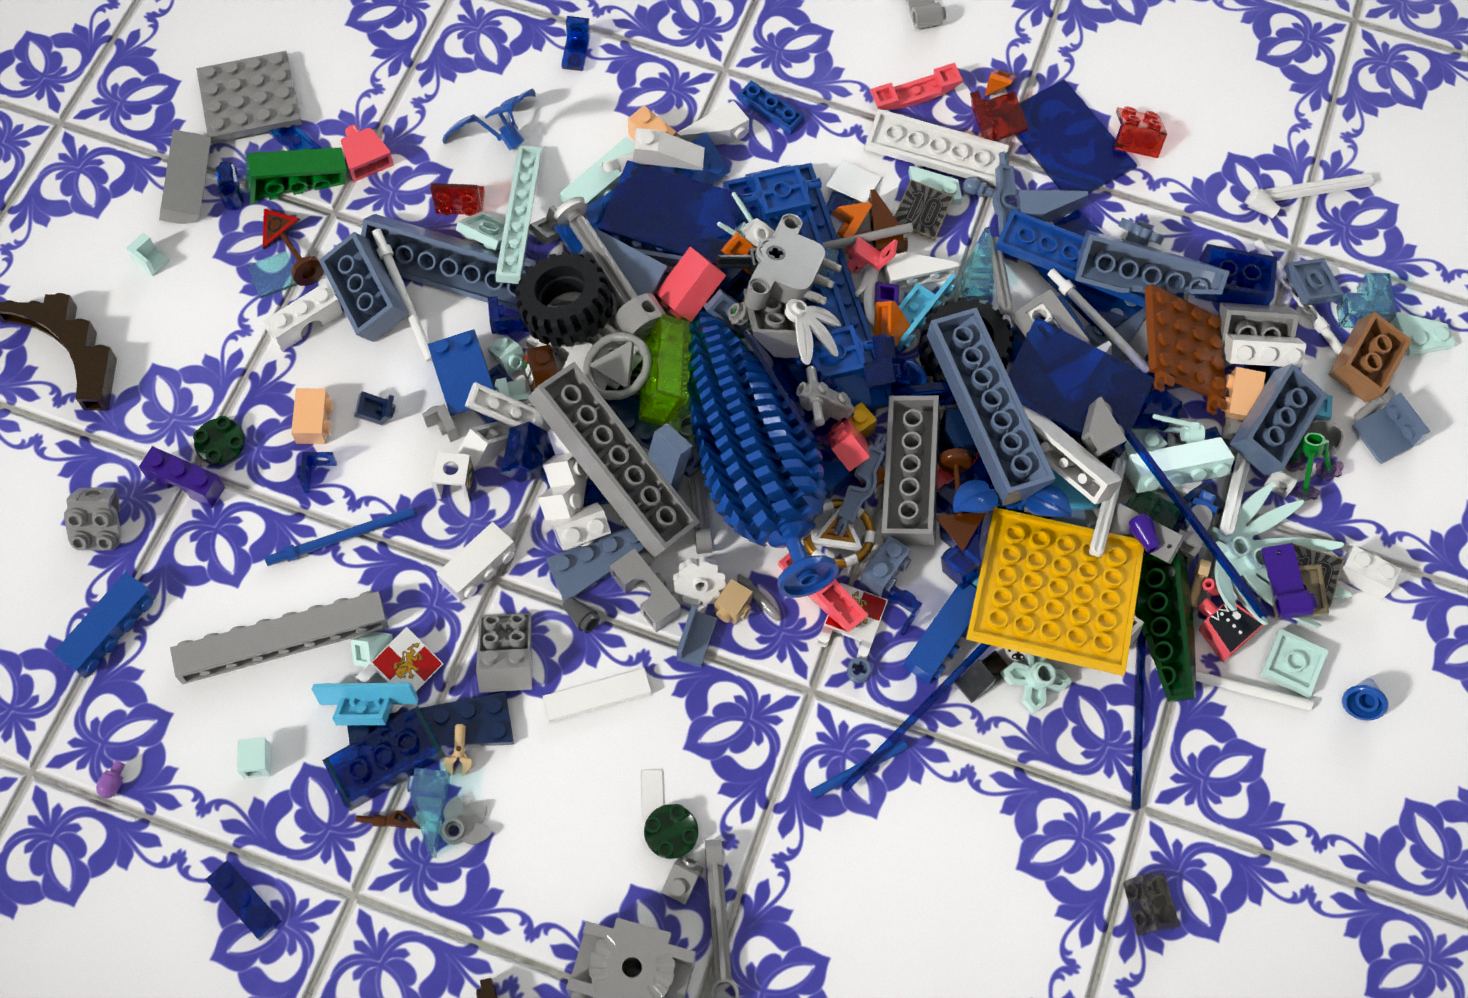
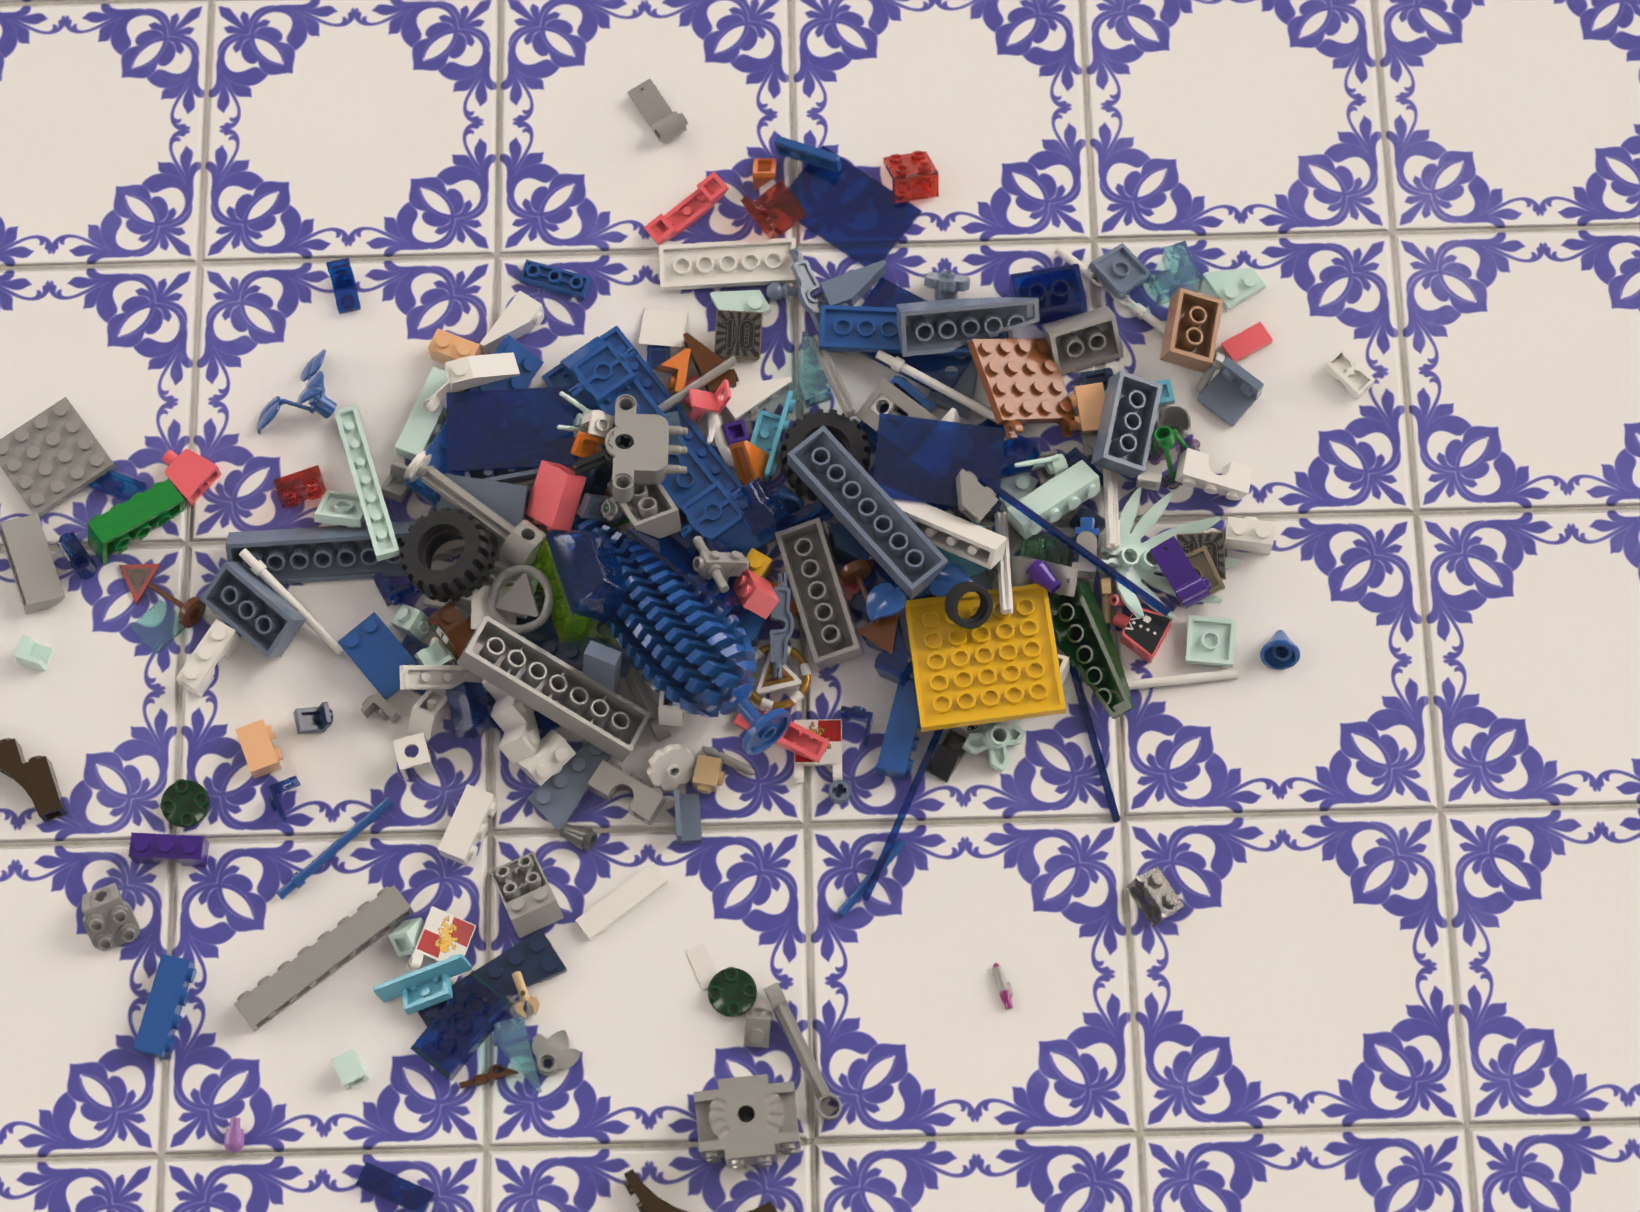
camera: 15 degrees left, 5 degrees up
(690, 358) = (588, 573): none -> clear blue windscreen
(717, 527) = (669, 714): none -> white panel
(807, 320) = (677, 493): white plant -> none
(885, 567) = (828, 691): sand blue brick -> none
(957, 939) = (1004, 987): none -> piece
(1048, 79) = (808, 154): none -> blue tile
(1074, 542) = (982, 614): none -> black tyre
(1262, 202) = (1047, 207): white cone -> none
(1264, 350) = (1095, 359): white brick -> none
(1320, 187) = (1096, 171): white axle -> none
(1333, 490) = (1195, 472): none -> white arch
(1421, 390) = (1246, 342): none -> coral tile

